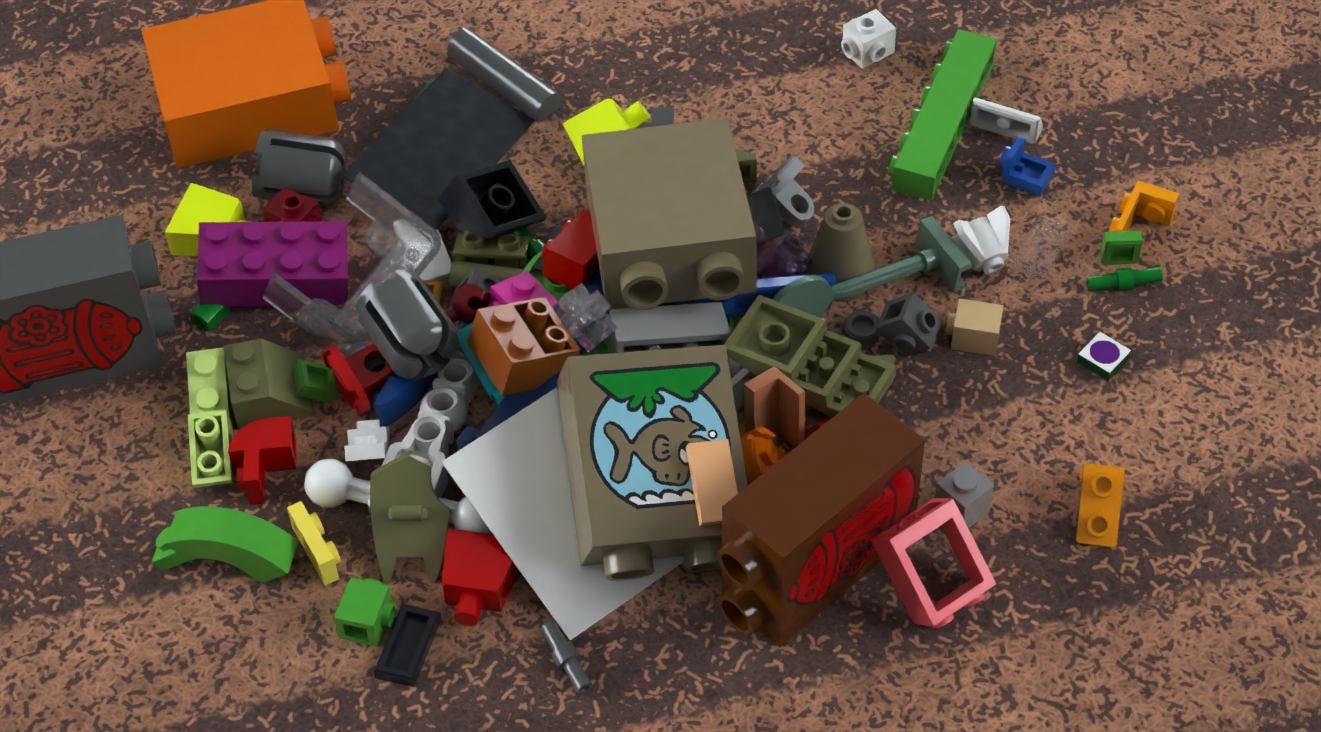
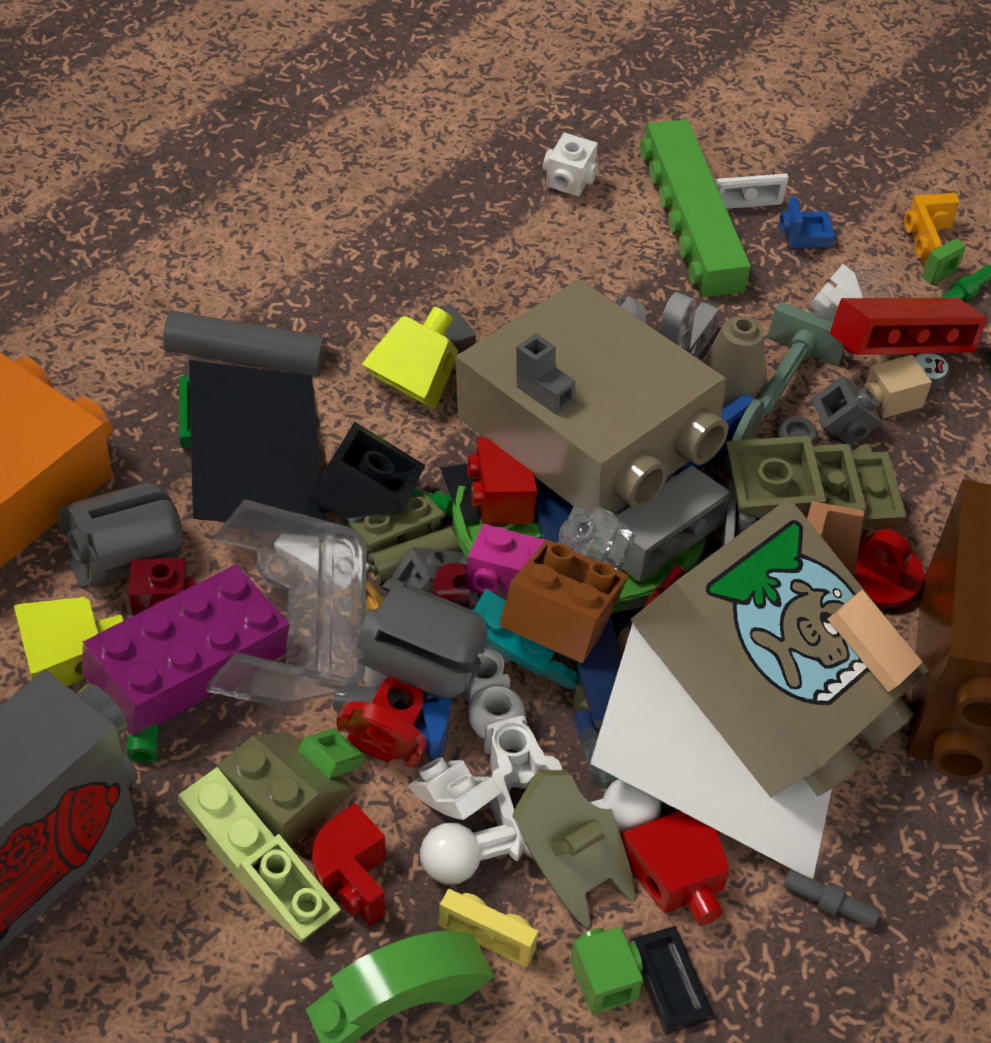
camera: 40 degrees left, 0 degrees up
(613, 171) = (540, 377): none -> dark grey piece
(808, 220) = (689, 327): none -> light grey beam
(1017, 280) = (907, 326): none -> red brick
(1025, 329) = (935, 367): none -> tile

